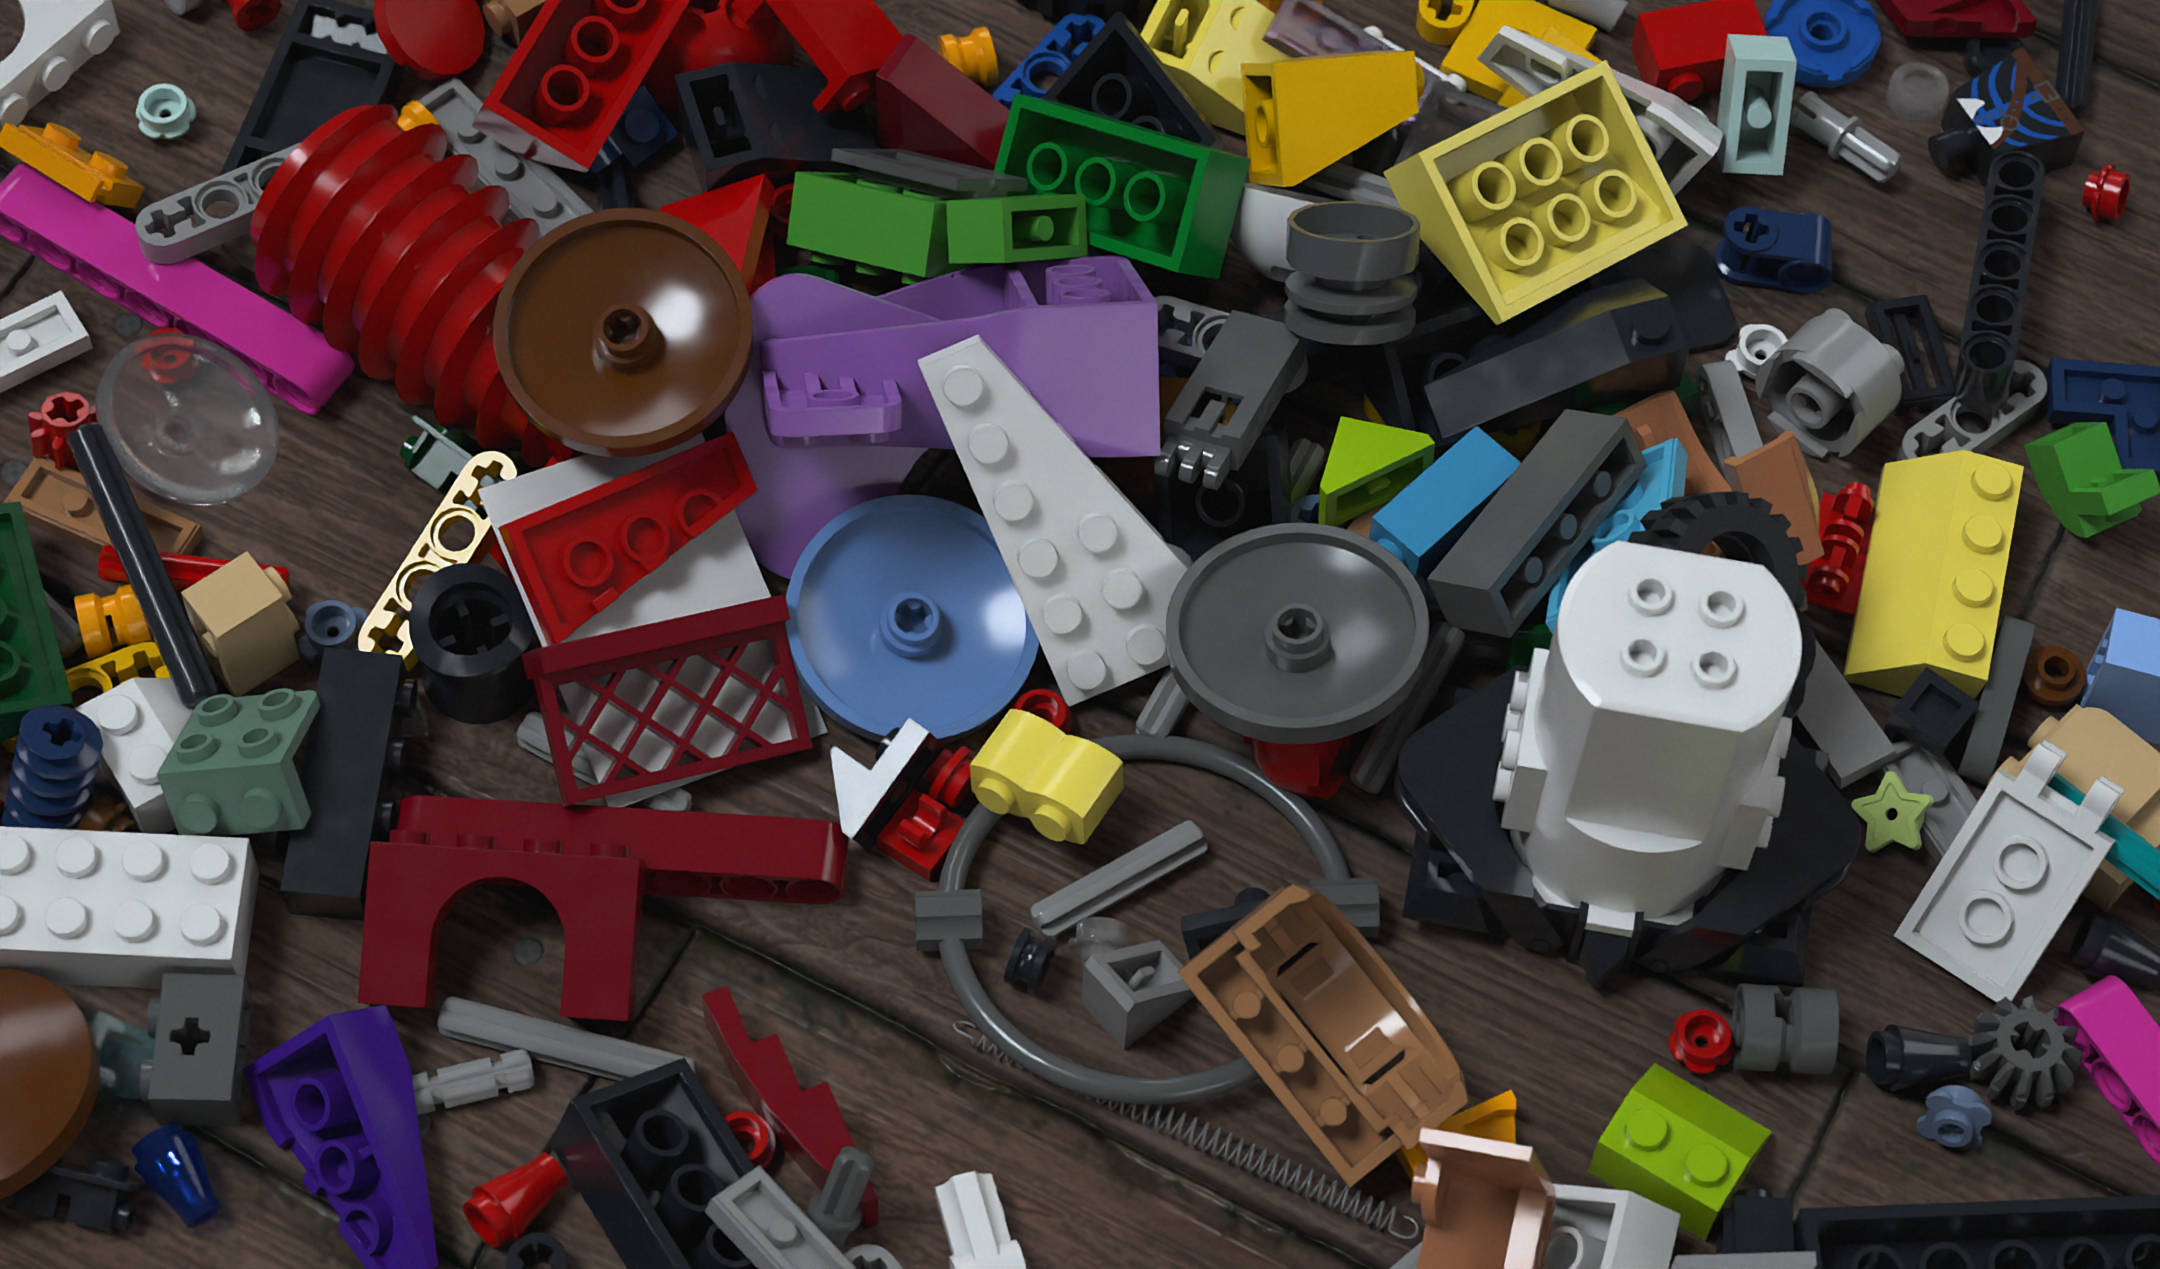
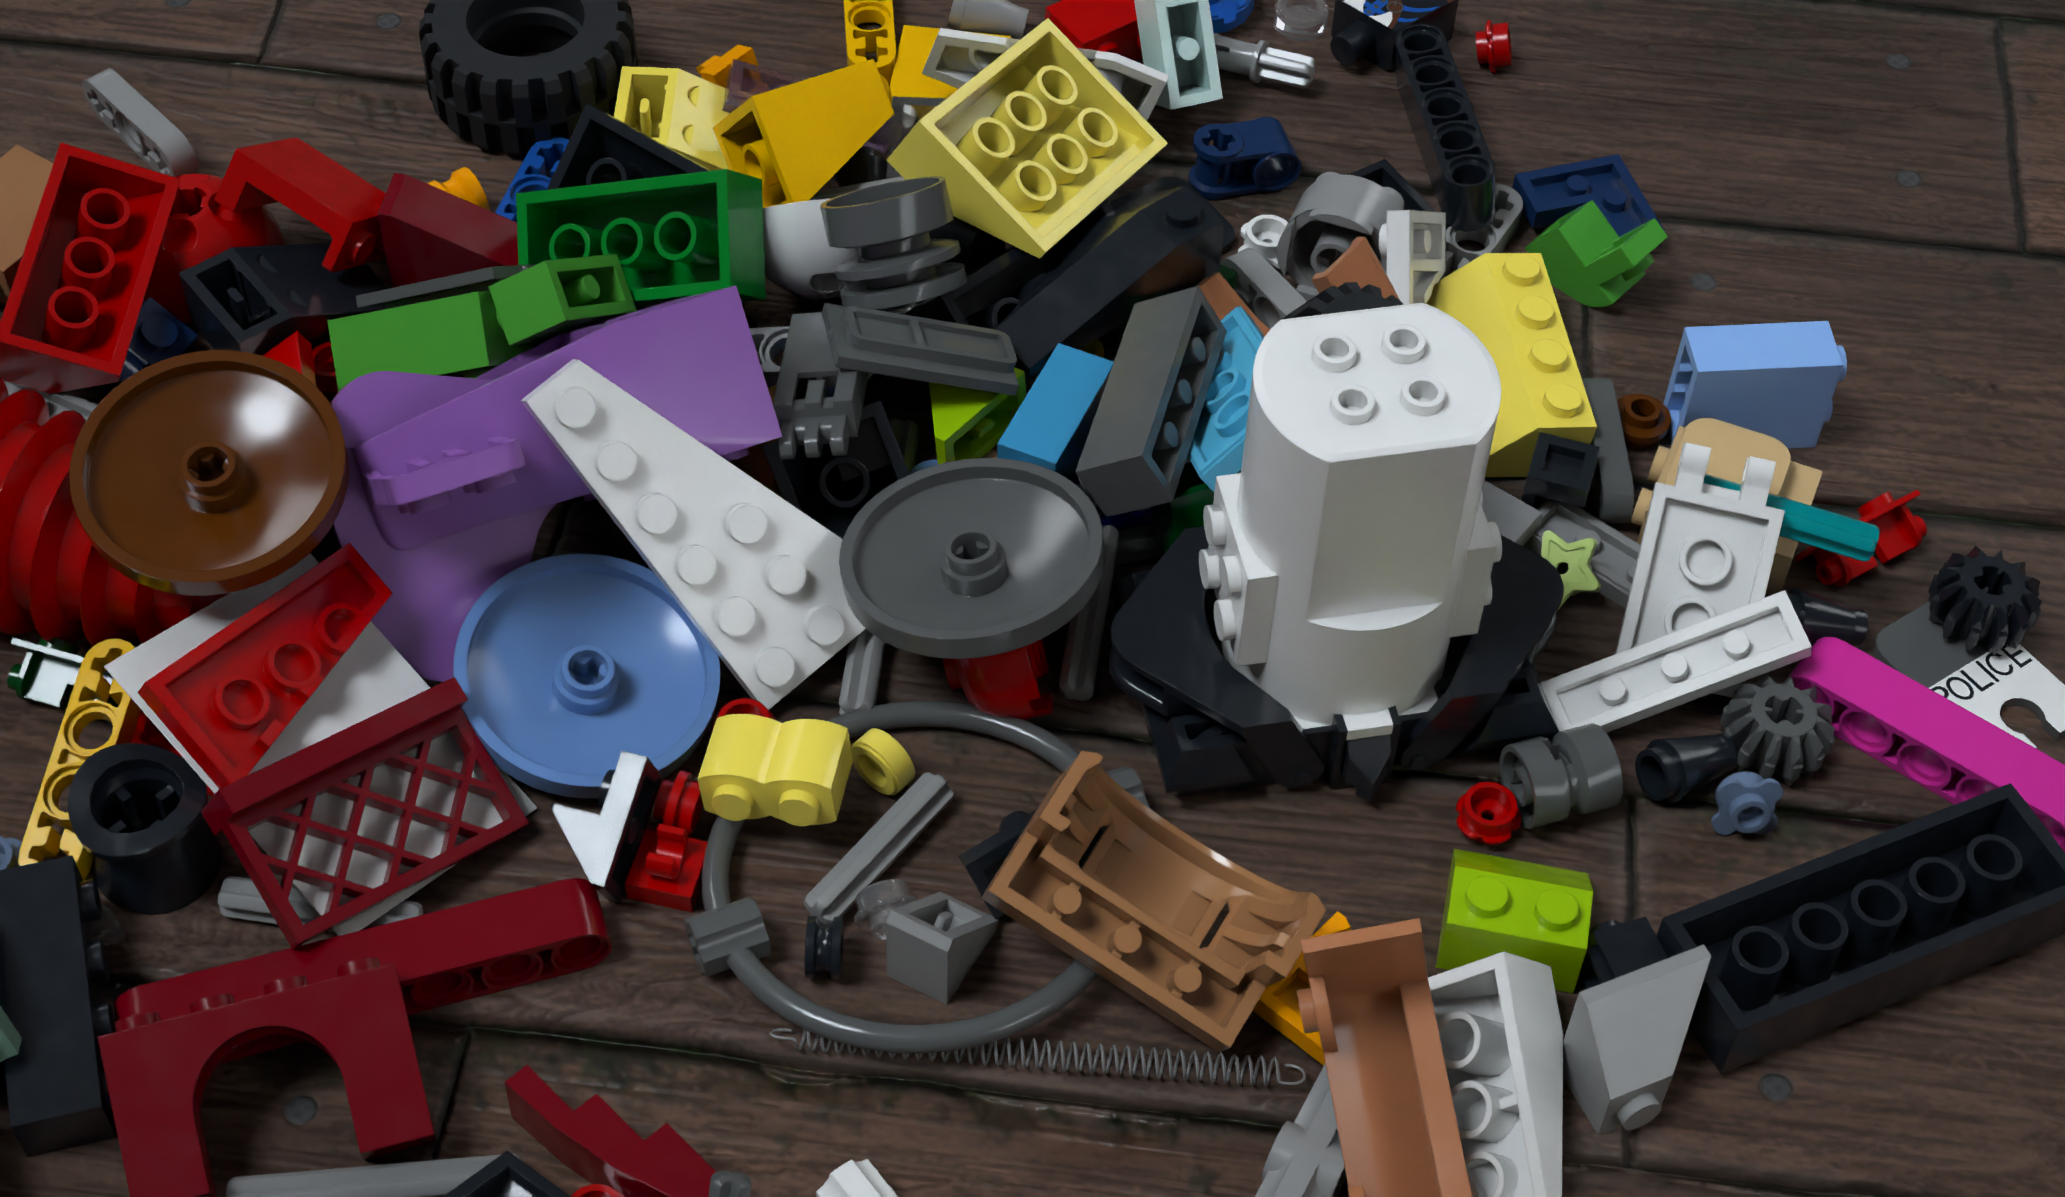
camera: 20 degrees left, 10 degrees down
(1152, 796) = (882, 762): none -> light yellow tile
(1336, 393) = (920, 348): none -> dark grey piece
(1885, 429) = (1414, 252): none -> white wing
(1946, 960) = (1680, 666): none -> white plate

